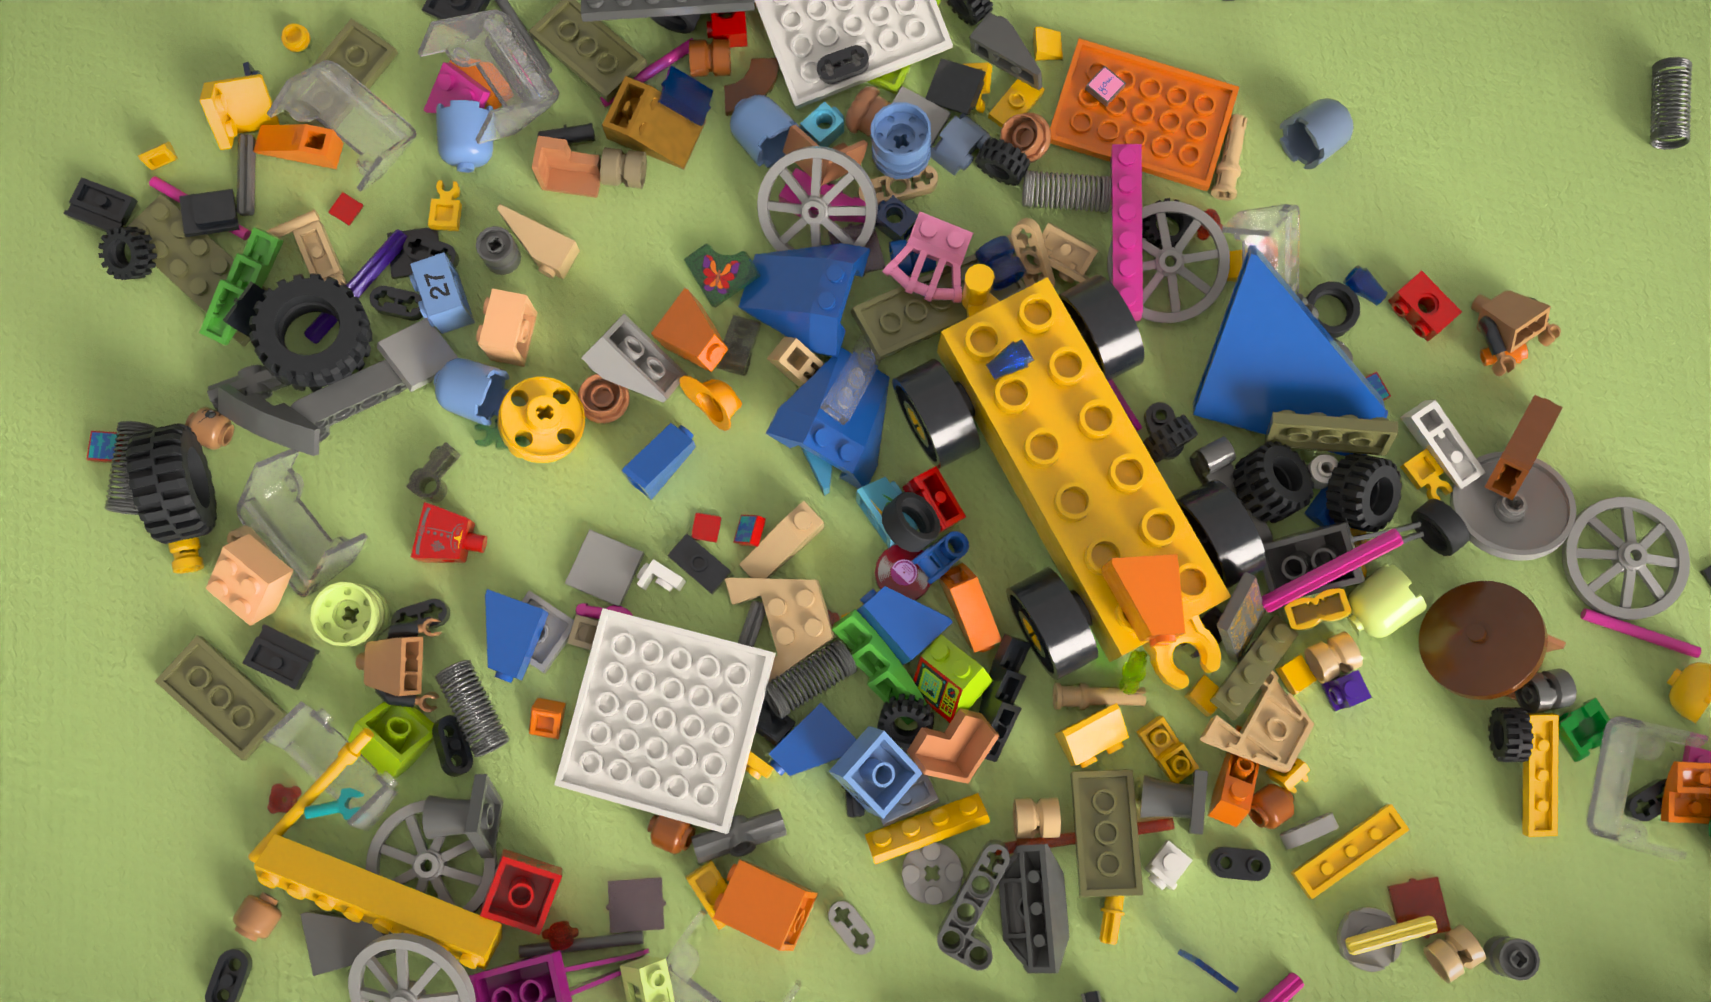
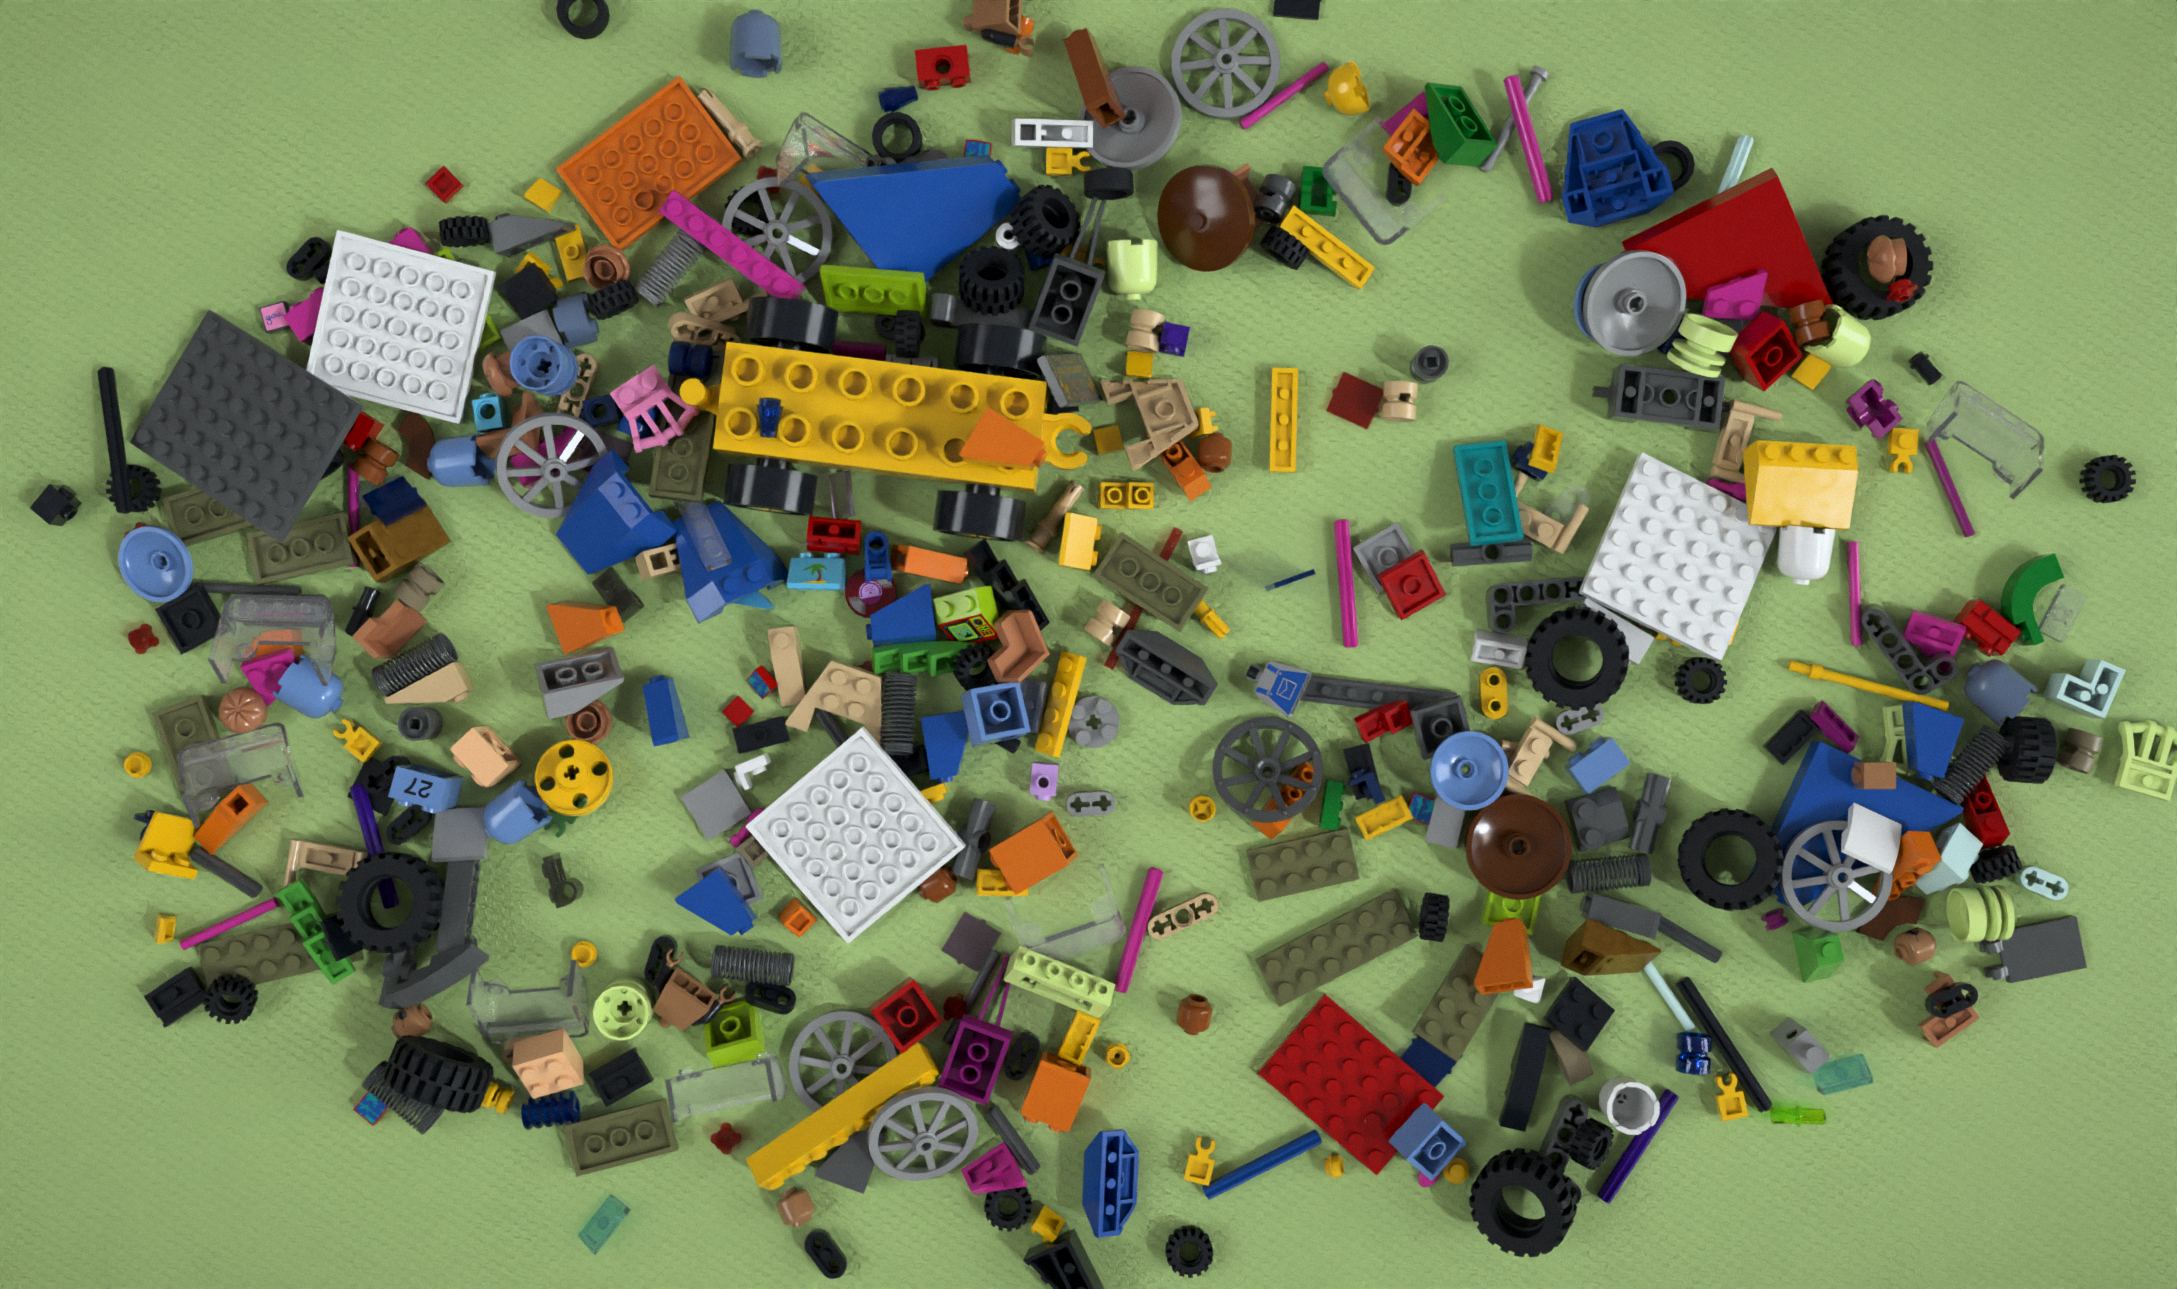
camera: 50 degrees left, 10 degrees up
(124, 739) = (603, 1224): none -> clear light blue slope
(203, 614) = (551, 1111): none -> clear blue piece
(209, 213) = (239, 919): black piece -> none
(339, 806) = (757, 1102): teal bar -> none
(345, 208) = (306, 815): red piece -> none
(346, 756) = (725, 1073): yellow bar -> none
(379, 542) = (584, 953): none -> yellow plate
(405, 92) = (242, 710): none -> nougat piece
(445, 537) = (614, 904): red torso -> none
(475, 816) = (831, 1013): dark grey plant -> none
(575, 221) = (408, 665): none -> dark grey piece
(713, 398) = (646, 640): light orange piece -> none
(721, 274) = (553, 571): clear green tile -> none
(840, 58) = (446, 364): black beam -> none
(842, 865) = (1044, 780): none -> lavender brick
(900, 530) = (836, 552): black tyre -> none
(977, 482) = (841, 494): none -> piece
(978, 899) = (1131, 704): dark grey beam -> none
(1105, 86) = (608, 178): bright pink tile -> none
(1133, 672) = (1054, 483): clear neon green axle -> none
(1177, 800) = (1163, 516): dark grey plant -> none
(1185, 382) = (873, 290): none -> lime tile
(1240, 863) = (1237, 503): black plate -> none
(1254, 667) = (1112, 392): olive plate -> none
(1309, 830) = (1249, 438): light grey beam -> none
(1326, 606) = (1102, 324): yellow brick -> none
(1331, 433) = (985, 216): olive plate -> none
(1332, 570) = (1081, 291): dark pink axle -> none
(1359, 922) = (1349, 437): light grey plate -> none
(1391, 935) = (1356, 436): light yellow axle -> none

